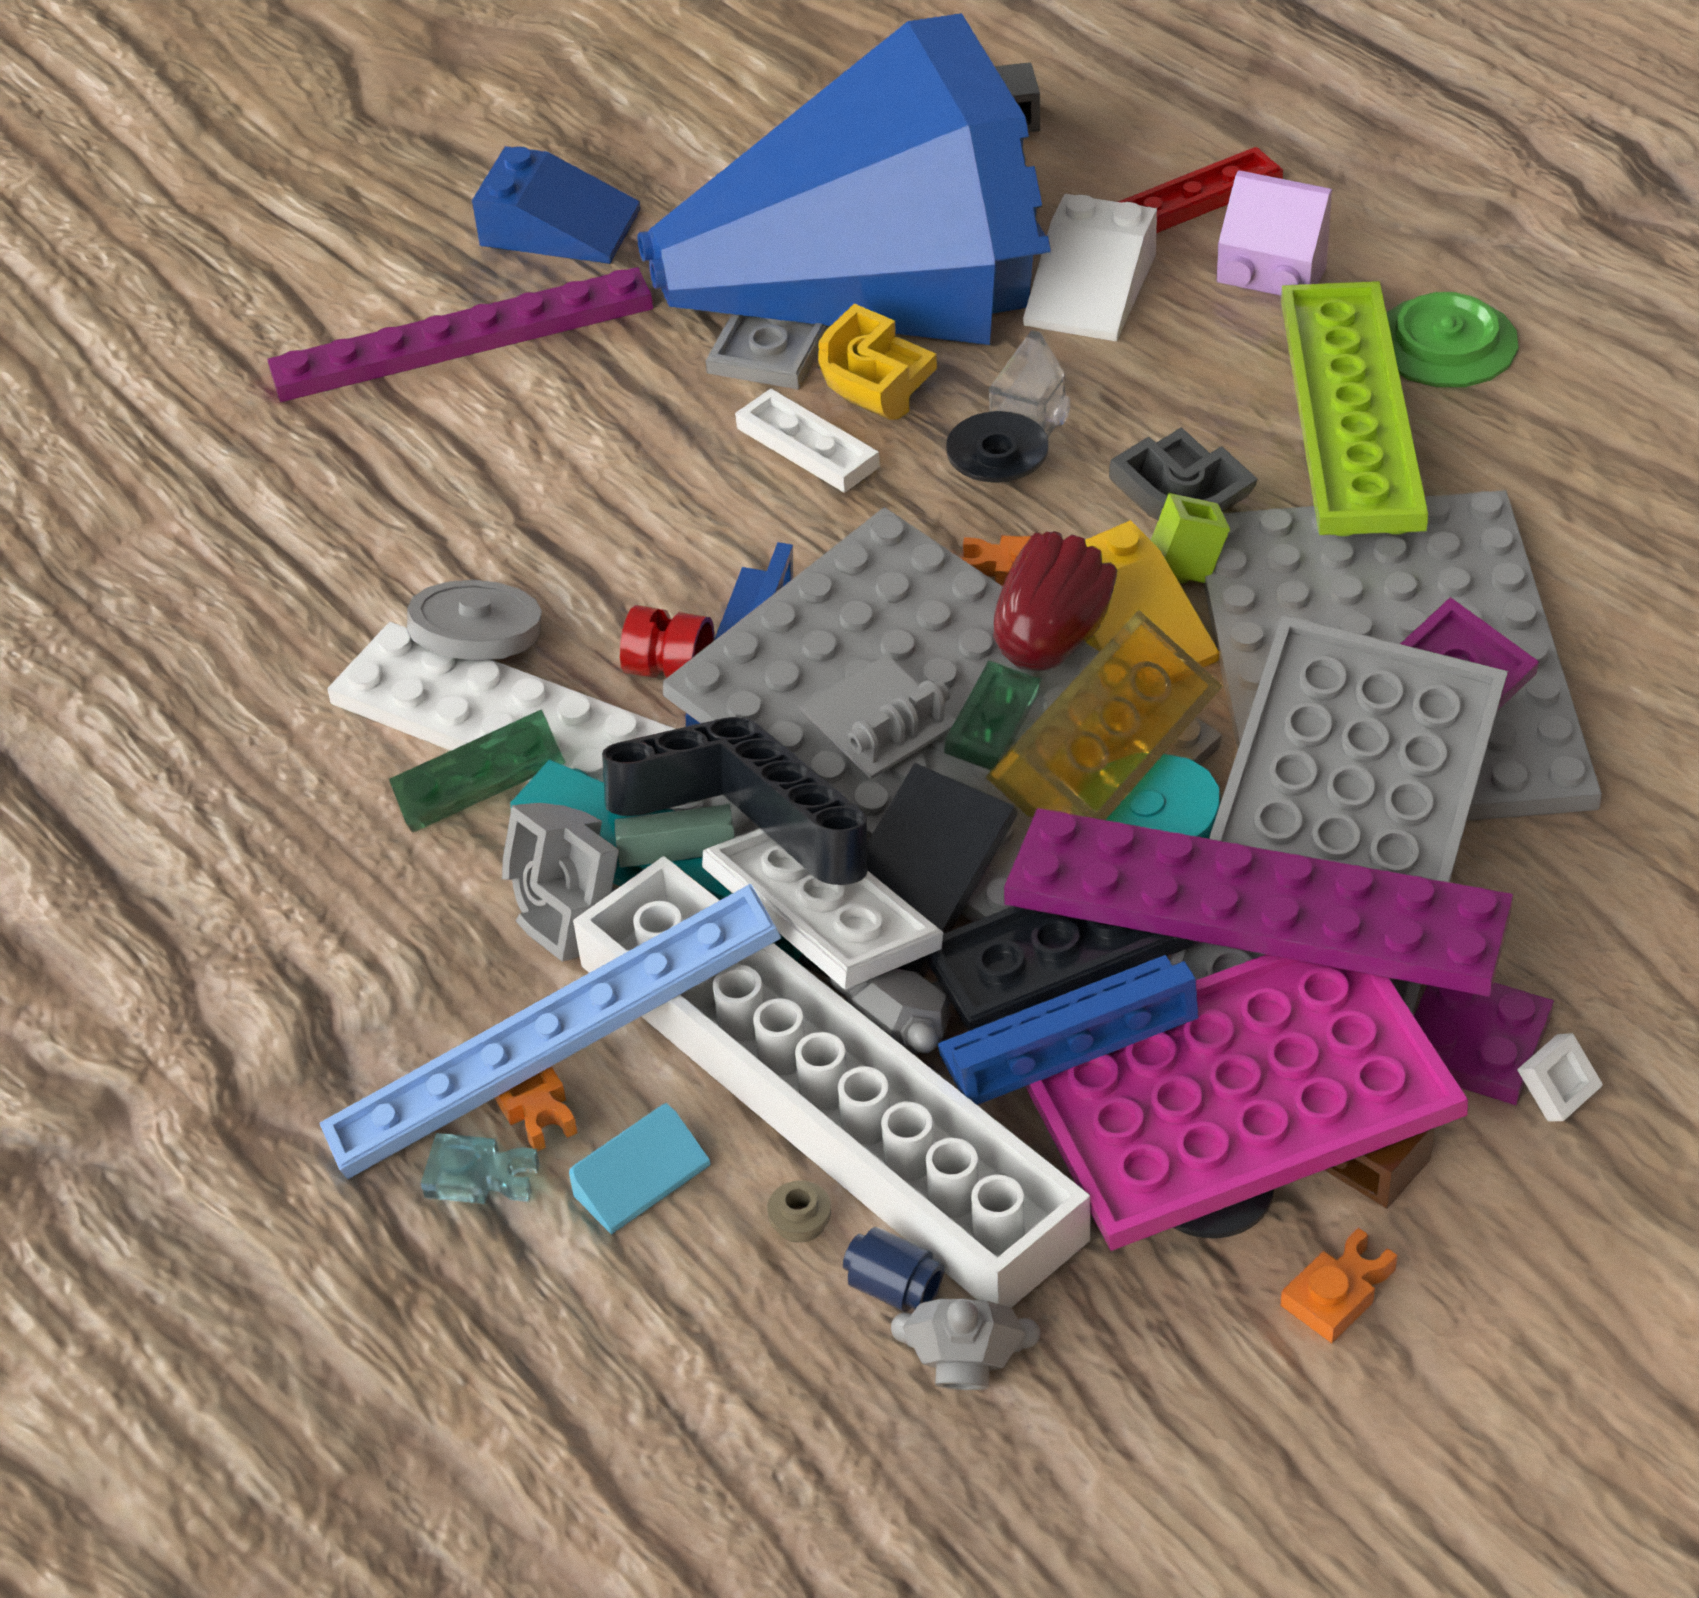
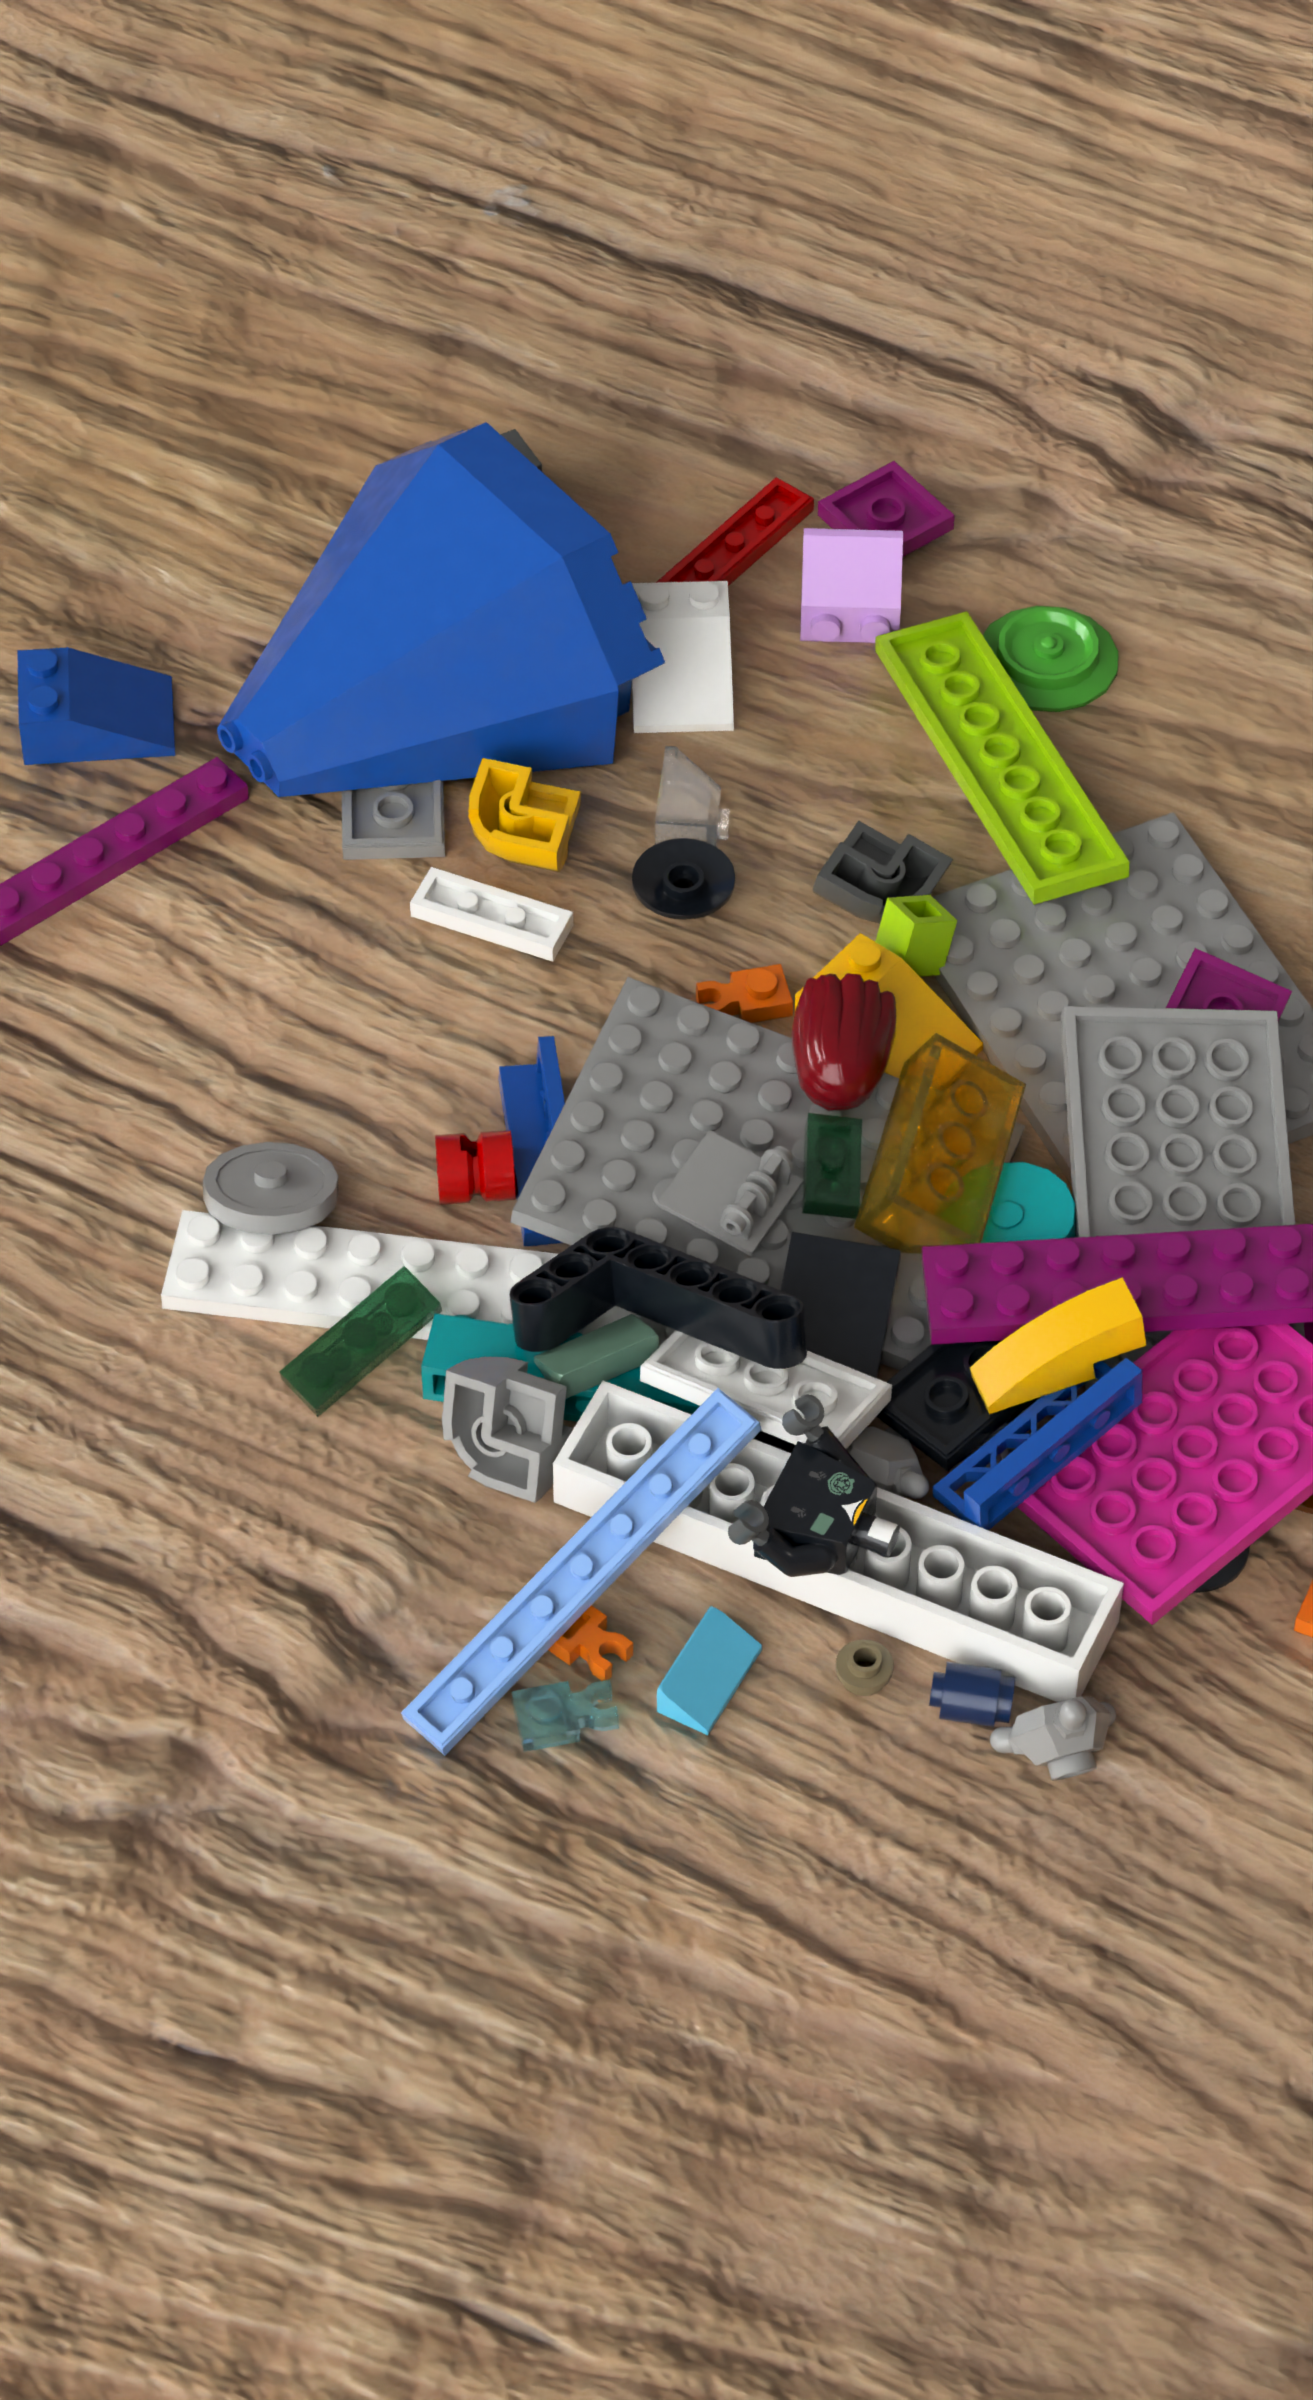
camera: 25 degrees left, 5 degrees up
(791, 1030) = (817, 1507): none -> black torso
(1126, 935) = (1060, 1347): none -> yellow slope
(1359, 188) = (888, 502): none -> magenta plate

